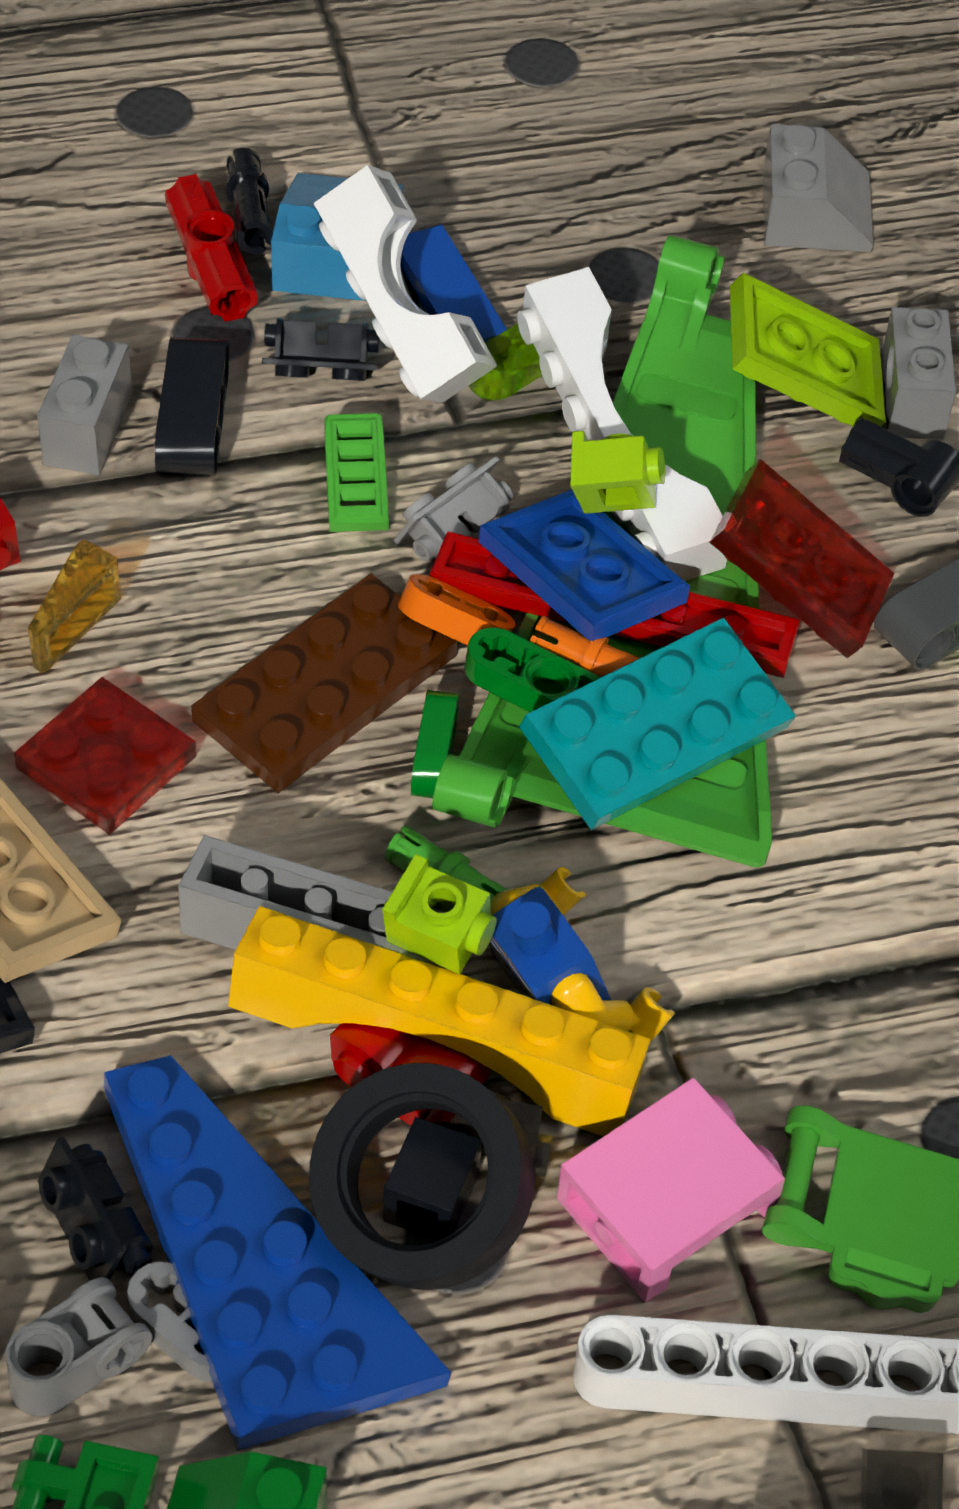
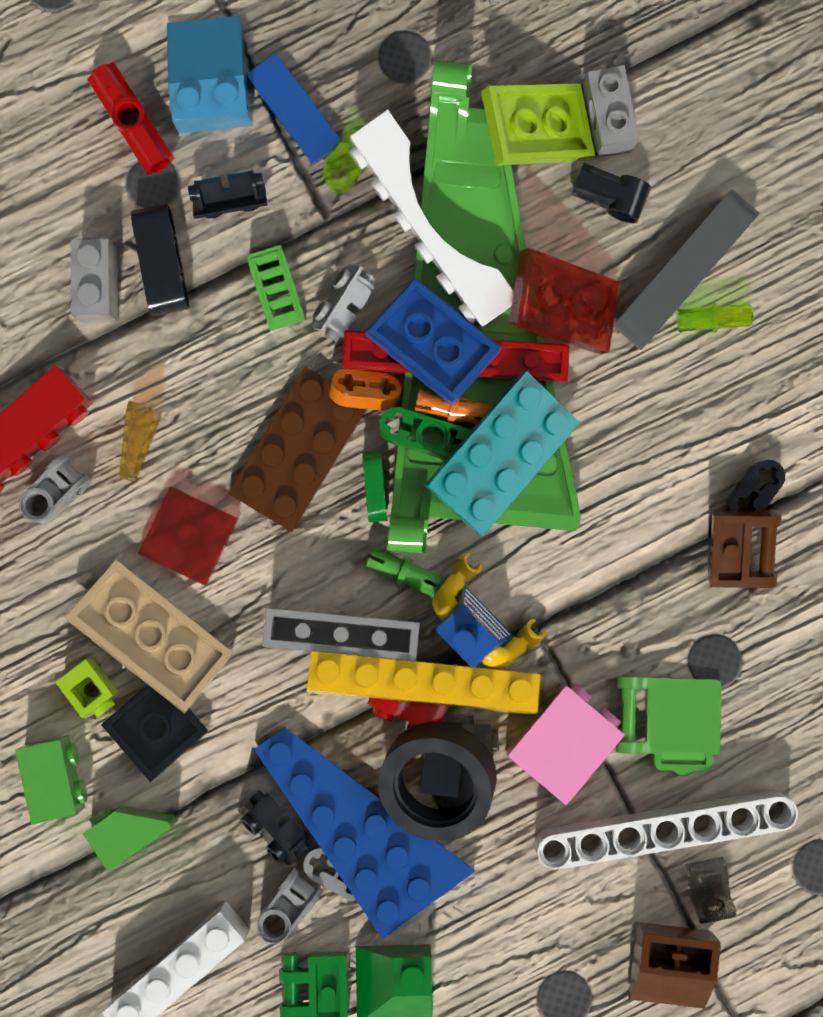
camera: 10 degrees left, 35 degrees up
(249, 192) = (140, 59): black pin -> none
(369, 226) = (297, 180): white arch -> none
(438, 937) = (404, 632): lime brick -> none
(615, 472) = (441, 283): lime brick -> none

